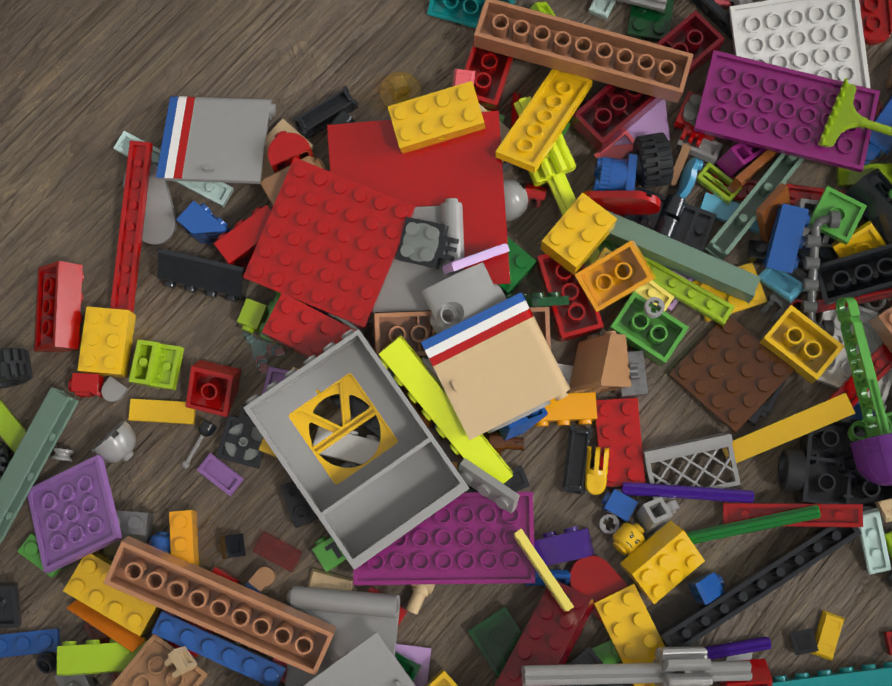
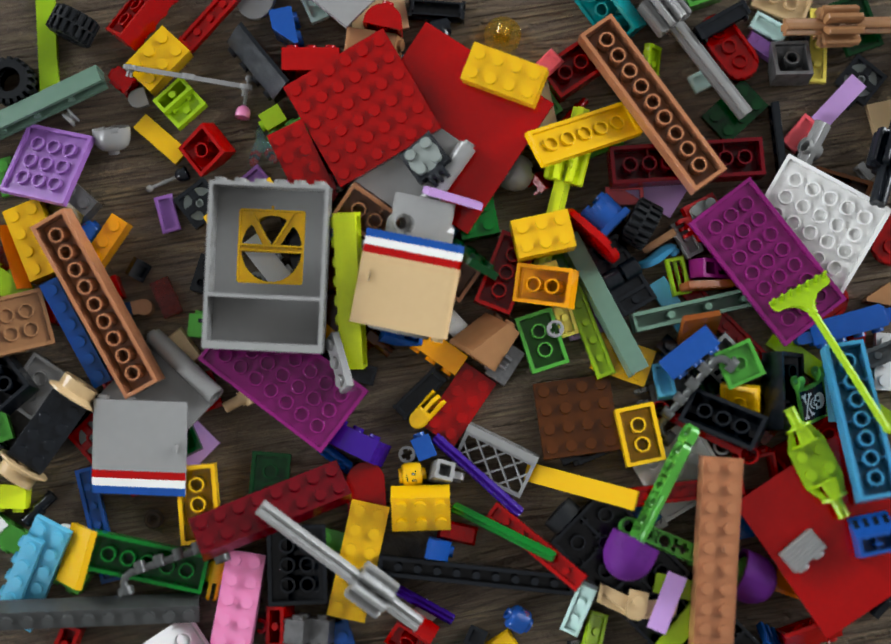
camera: 40 degrees right, 5 degrees up
(87, 365) = (187, 76): none -> light grey piece
(182, 660) = (45, 320): tan tile -> none
(219, 330) = (243, 112): none -> bright pink hinge
(543, 571) = (330, 450): light yellow tile -> none
(714, 557) = (459, 533): none -> red tile
(827, 594) = (518, 619): none -> blue head

